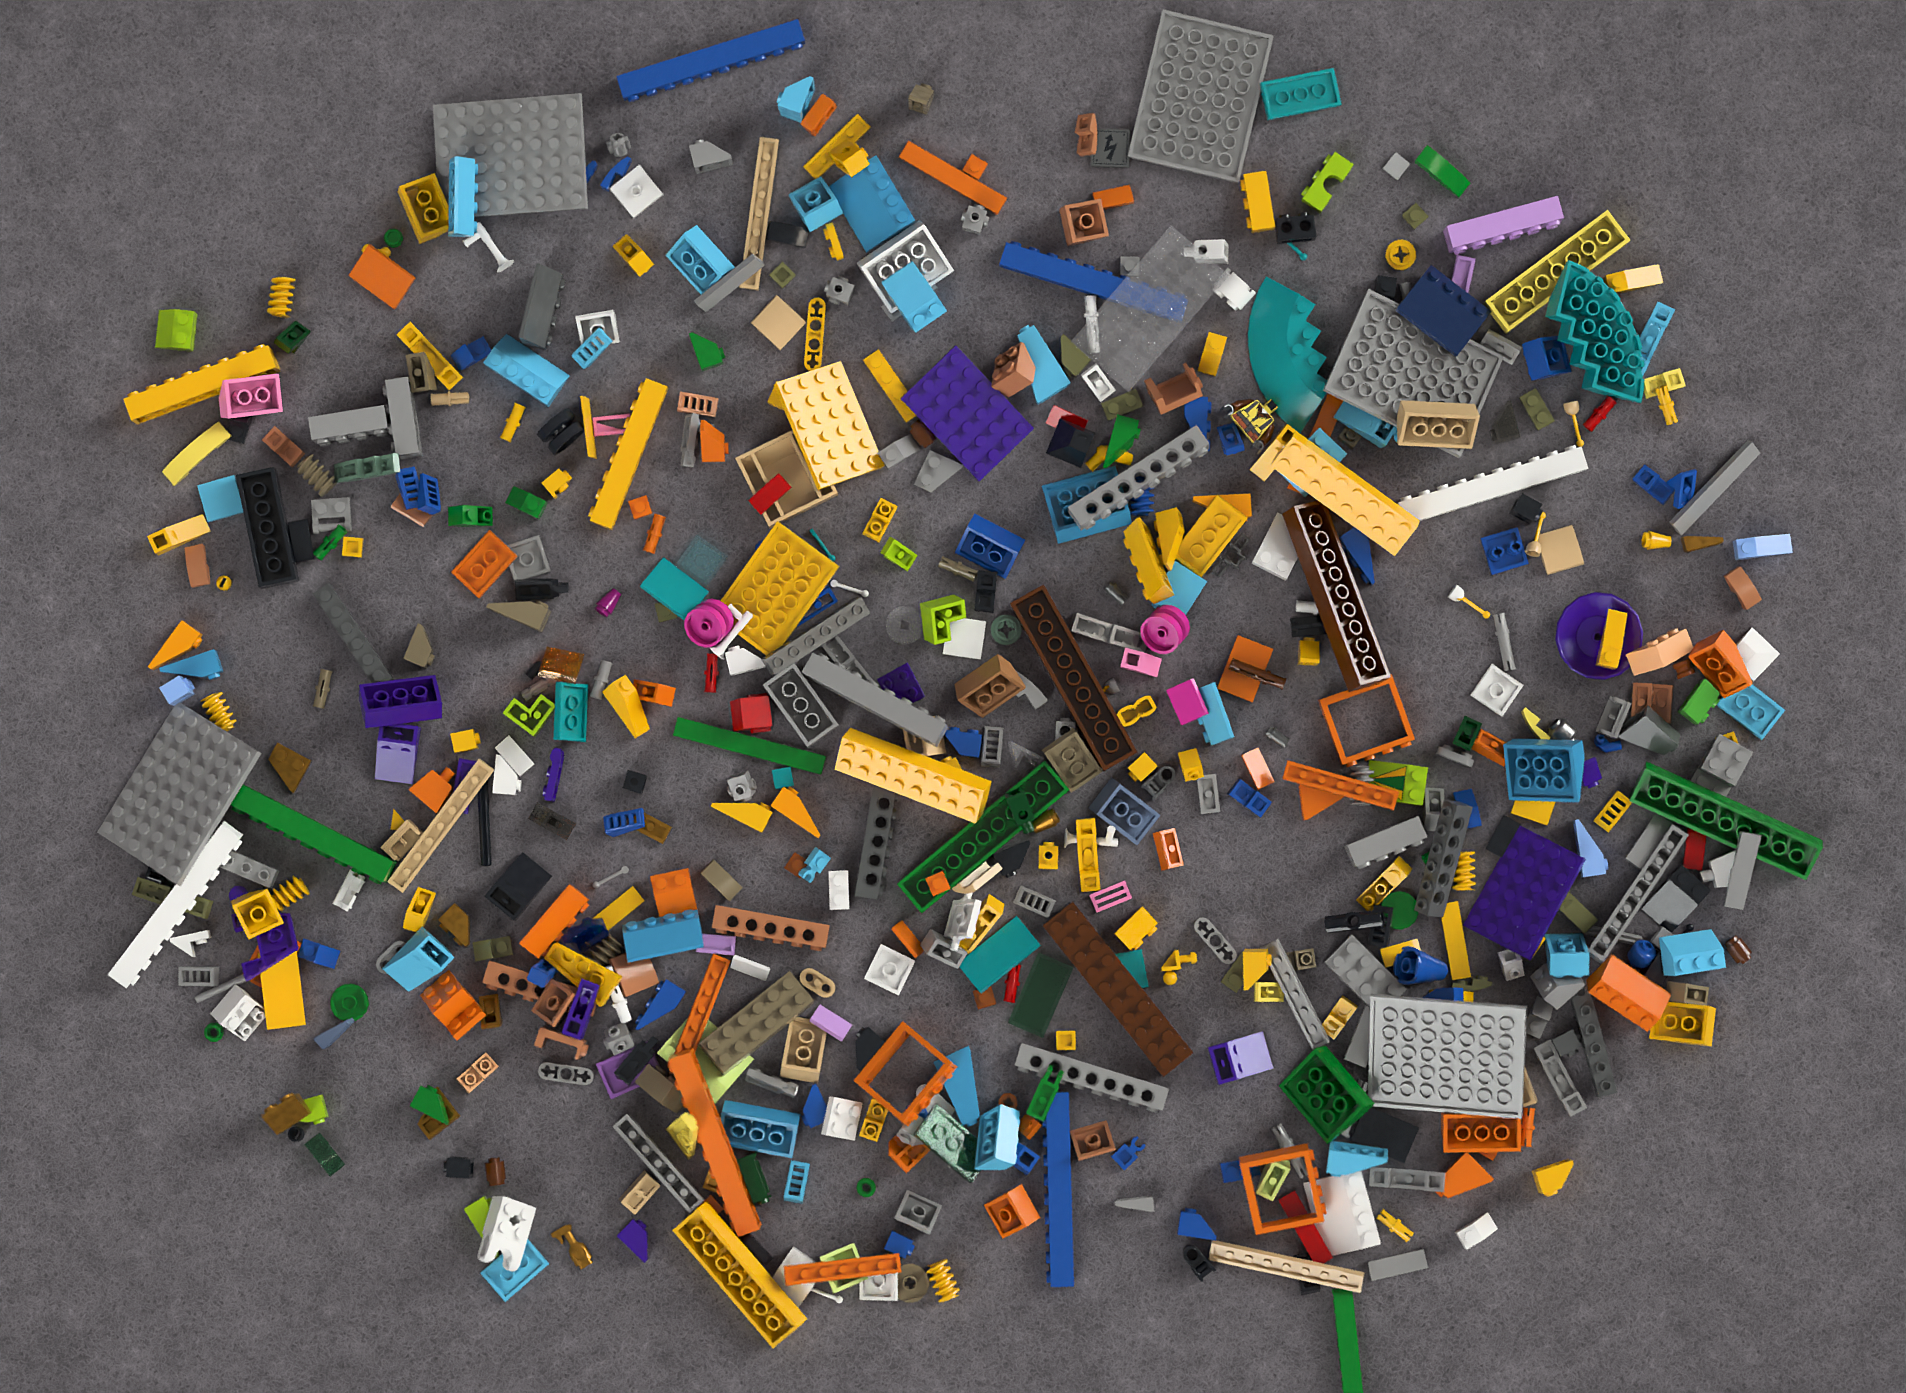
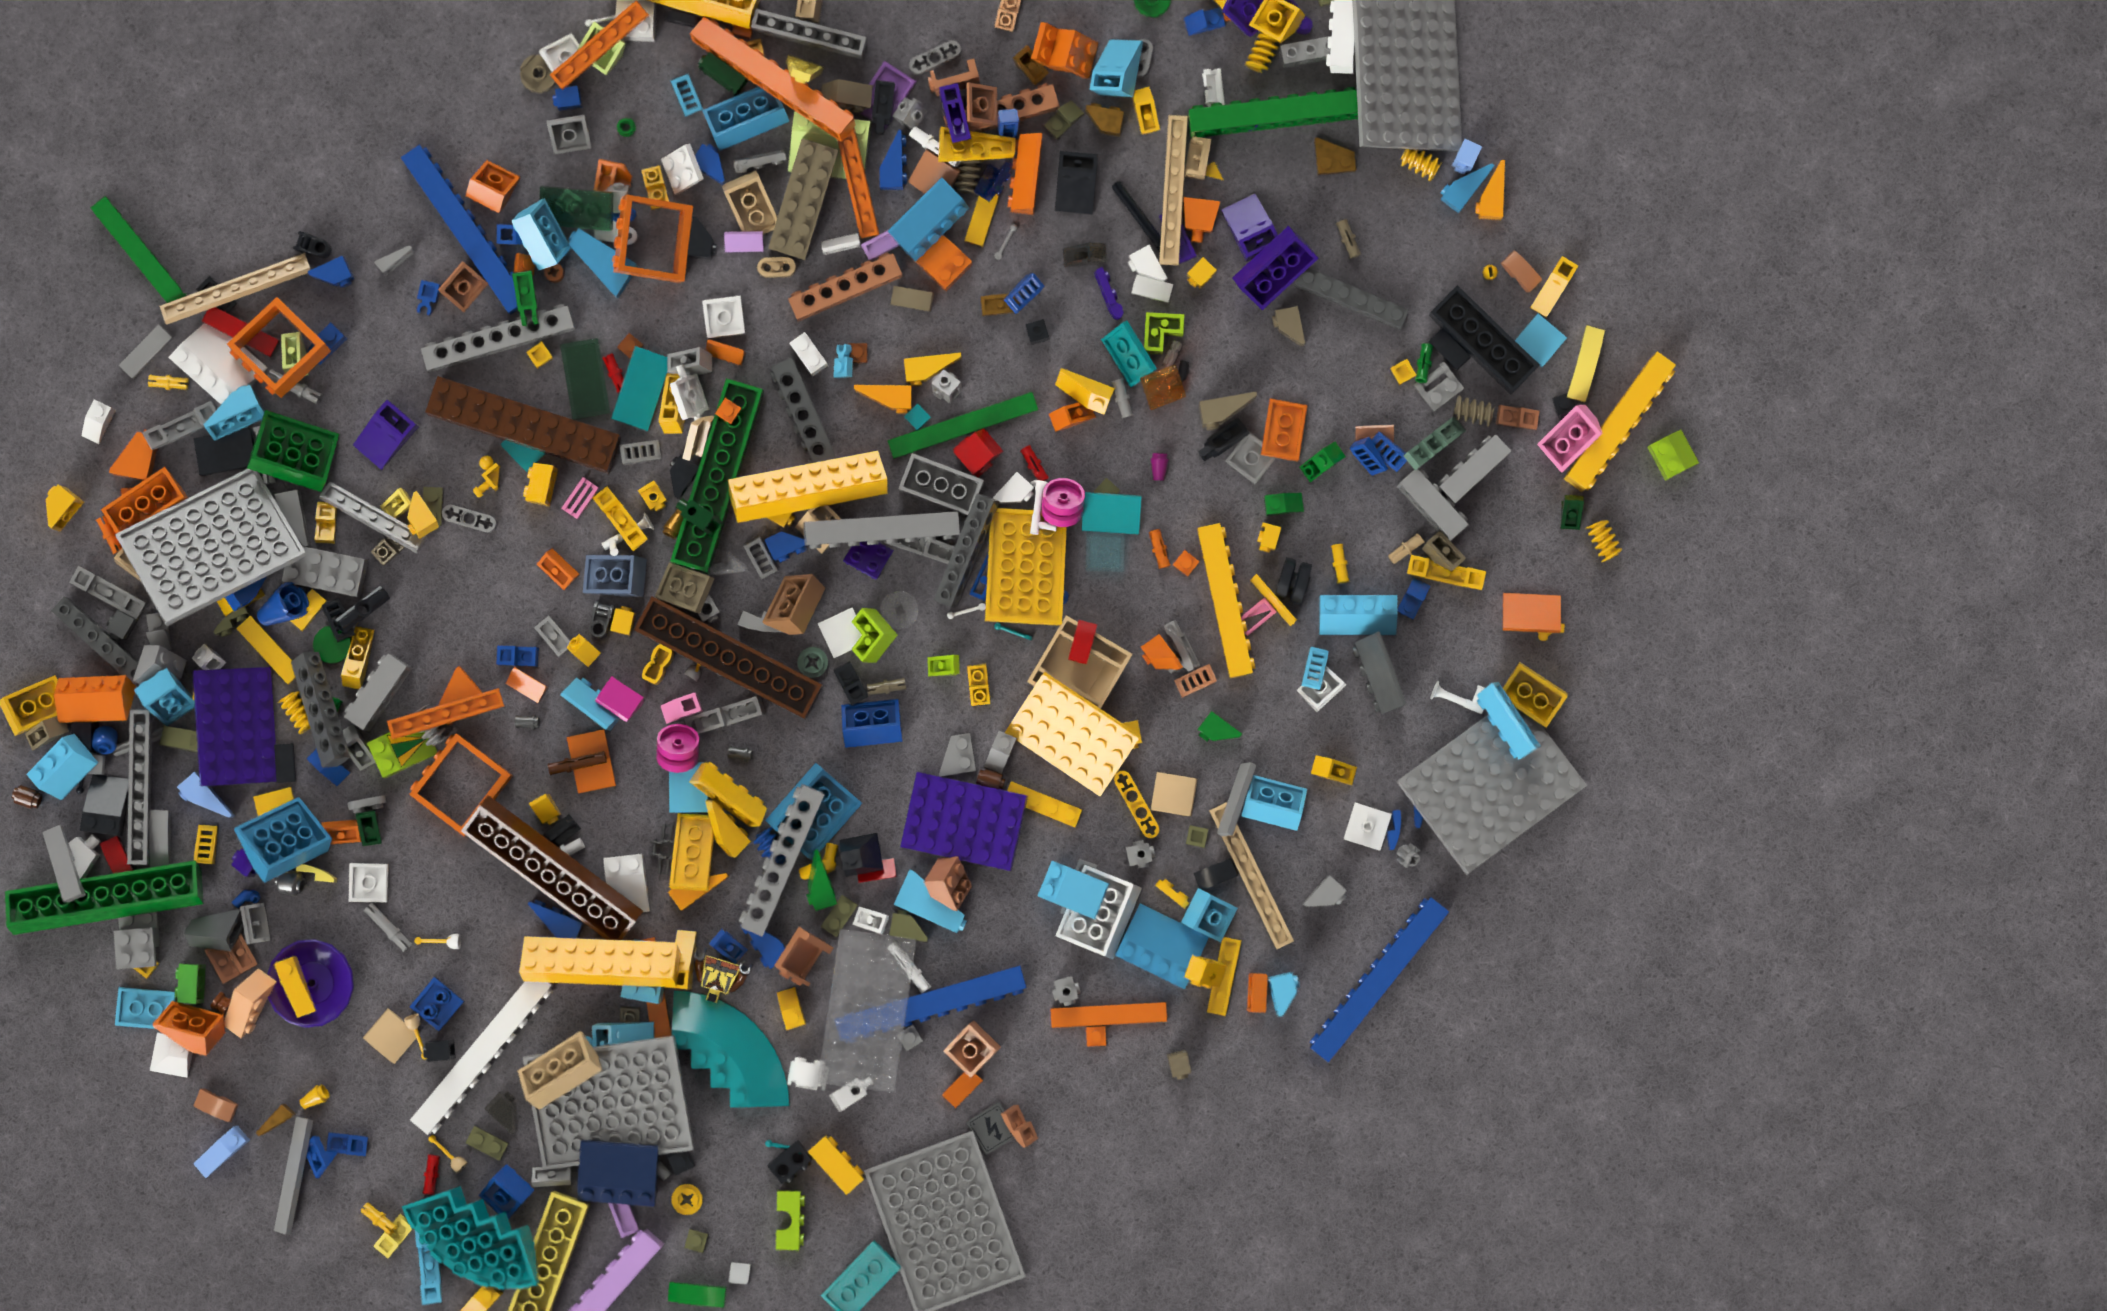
camera: 150 degrees right, 0 degrees up
(393, 238) = (1544, 652): green plate -> none
(943, 1280) = (512, 93): yellow piece -> none

